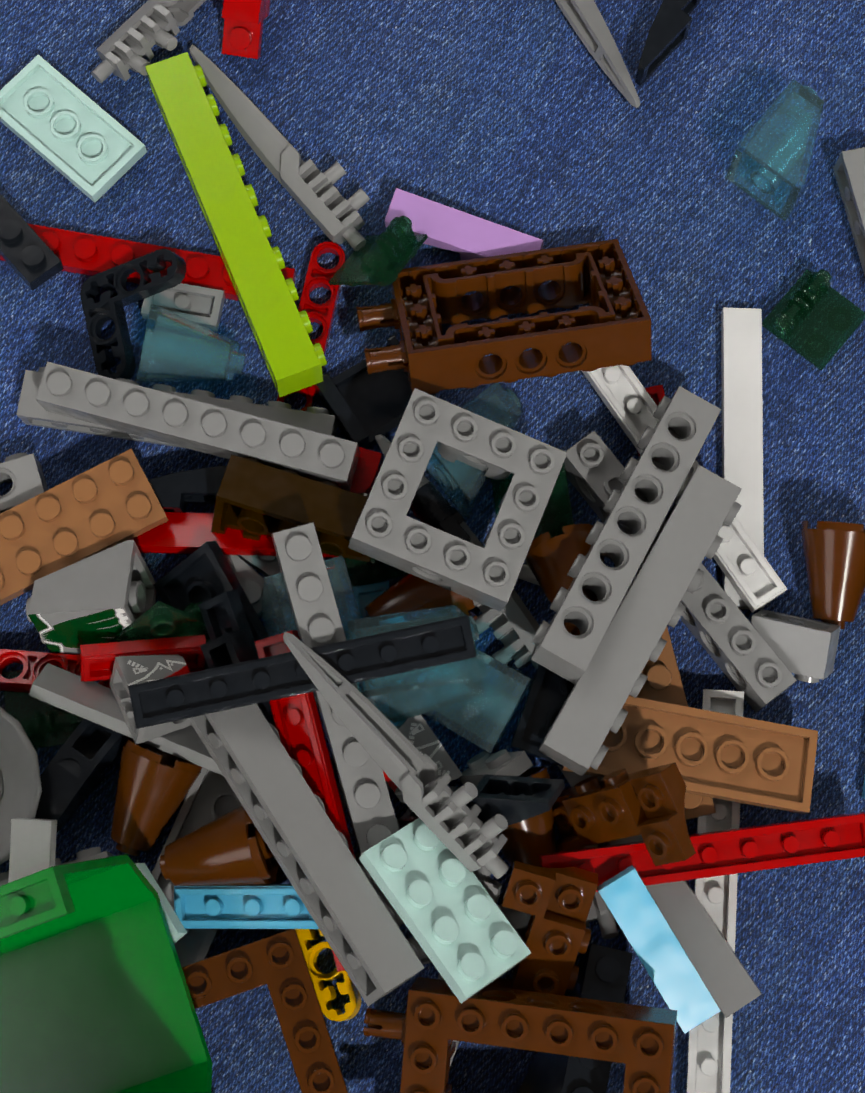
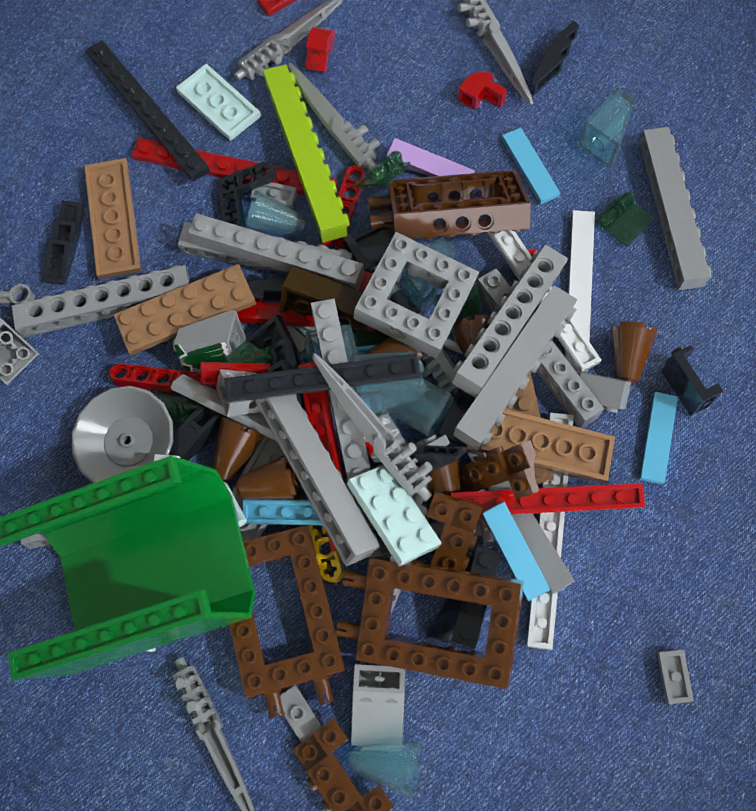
camera: 10 degrees right, 5 degrees down
(544, 77) = (480, 87): none -> red brick
(643, 224) = (530, 166): none -> medium azure tile

